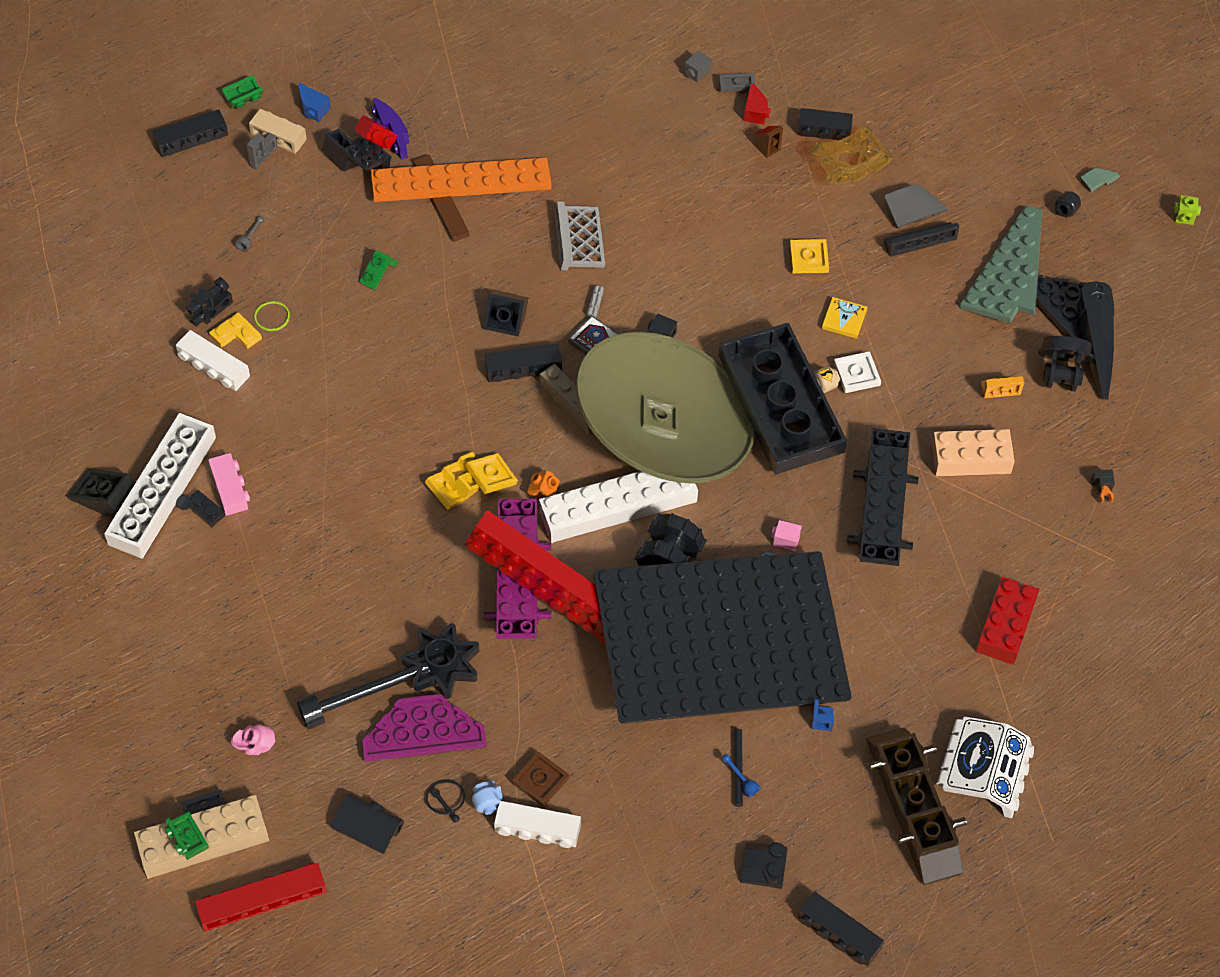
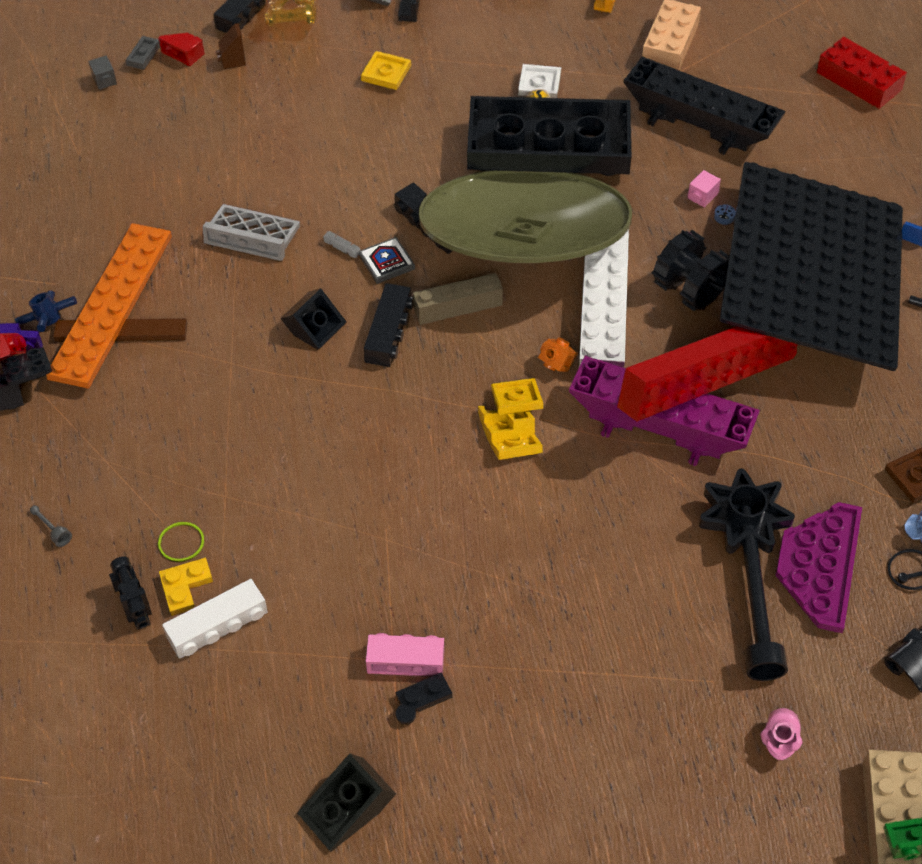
camera: 65 degrees left, 5 degrees down
(160, 485) = (376, 729): white brick -> none
(204, 802) = (854, 820): black plate -> none
(376, 269) = (185, 415): green bracket -> none
(431, 142) = (45, 310): none -> dark blue bar
(844, 318) = (470, 71): yellow tile -> none

